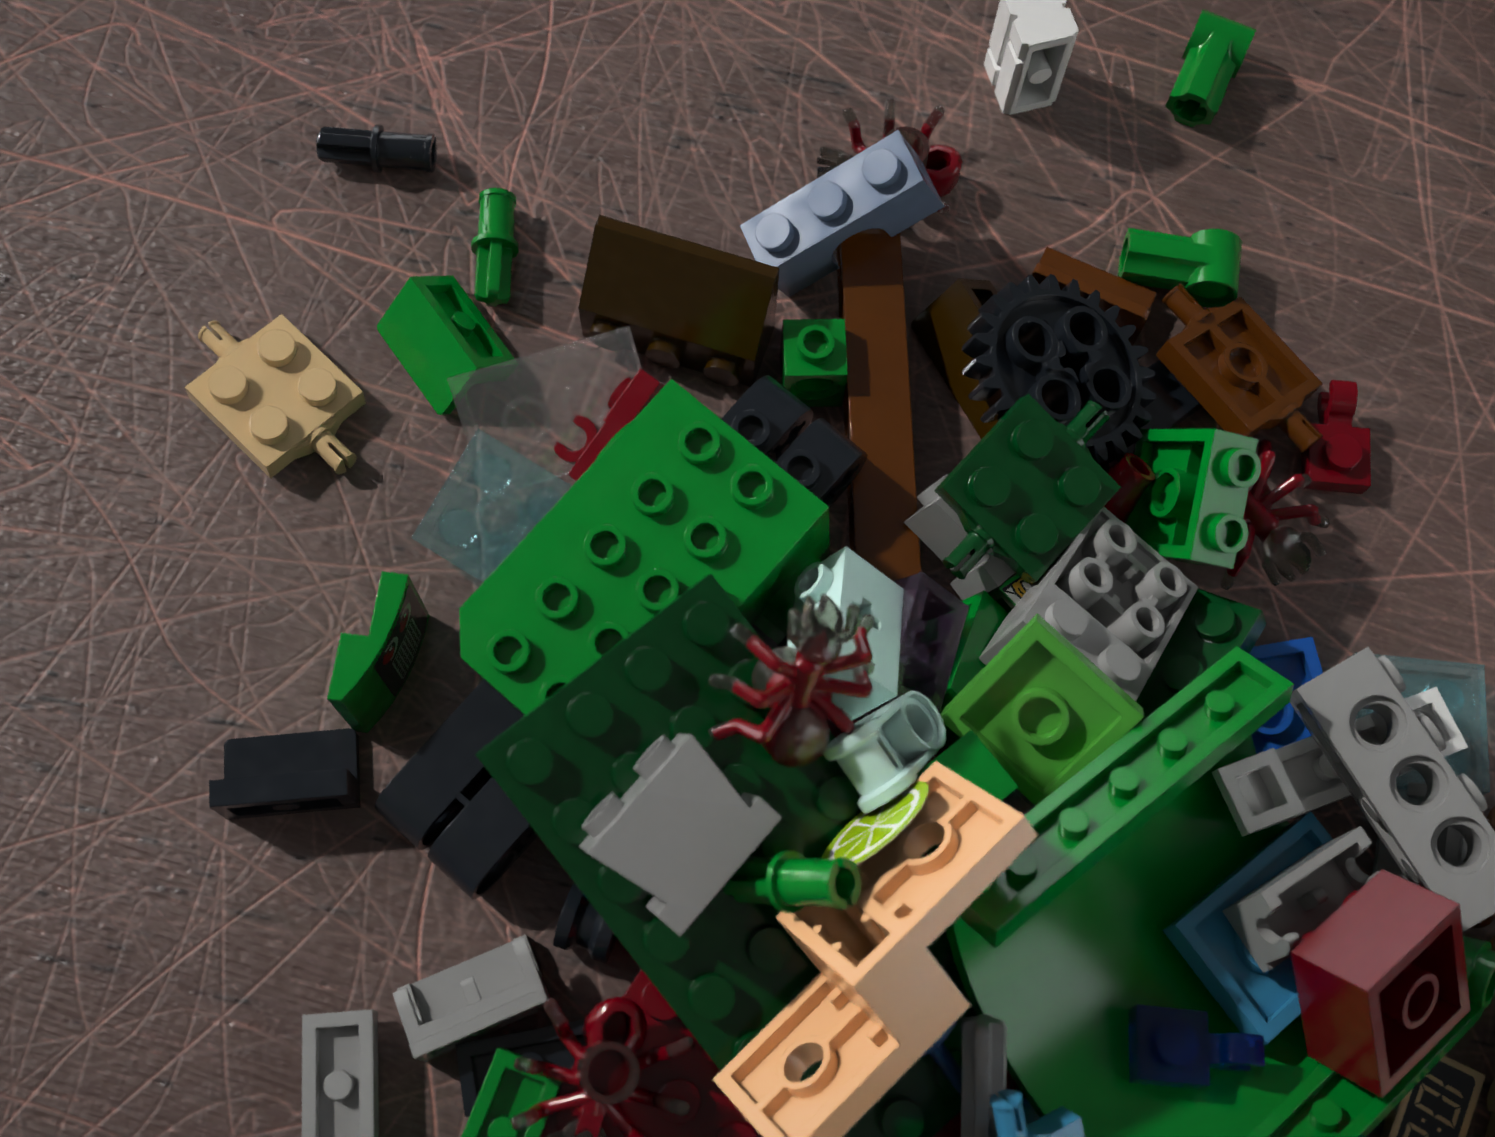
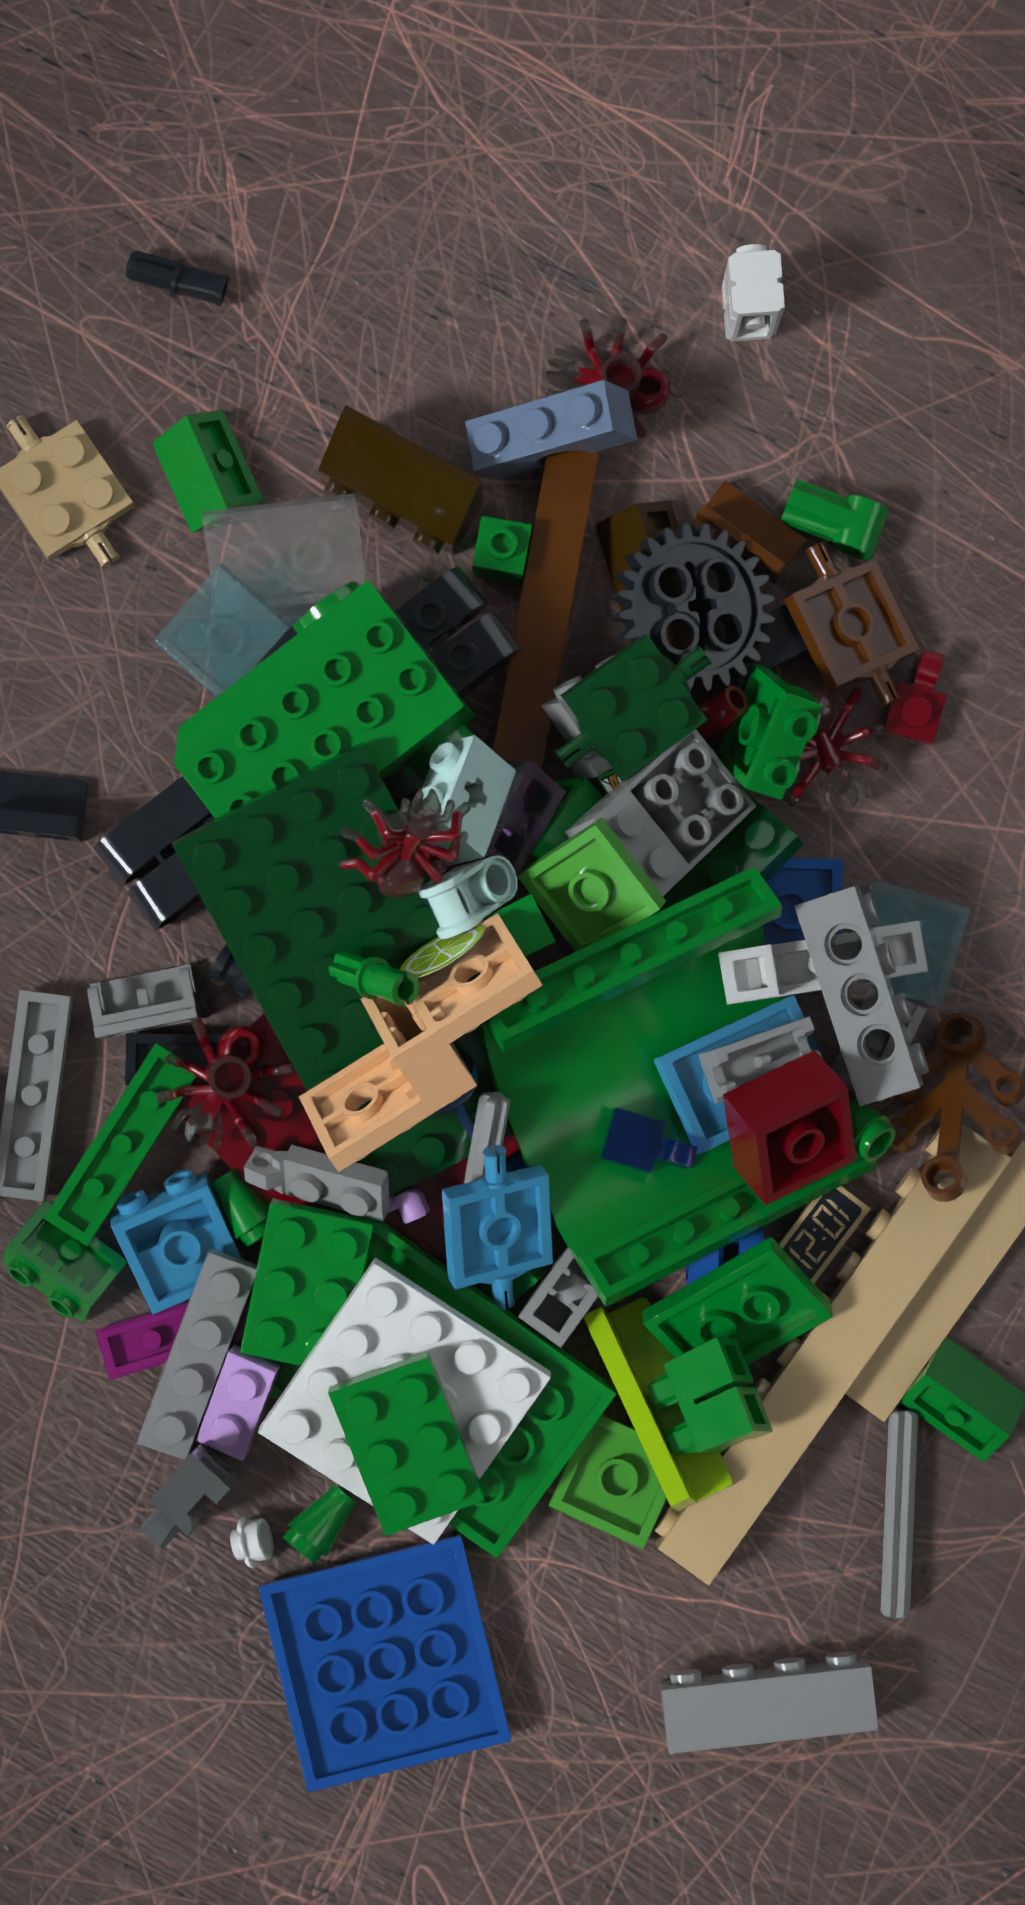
camera: 15 degrees right, 15 degrees up
(376, 666) = (107, 746): green slope -> none
(495, 246) = (261, 390): green axle -> none
(624, 404) = (343, 567): dark red plate -> none
(677, 829) = (302, 926): light grey hips -> none
(1210, 62) = (919, 325): green piece -> none

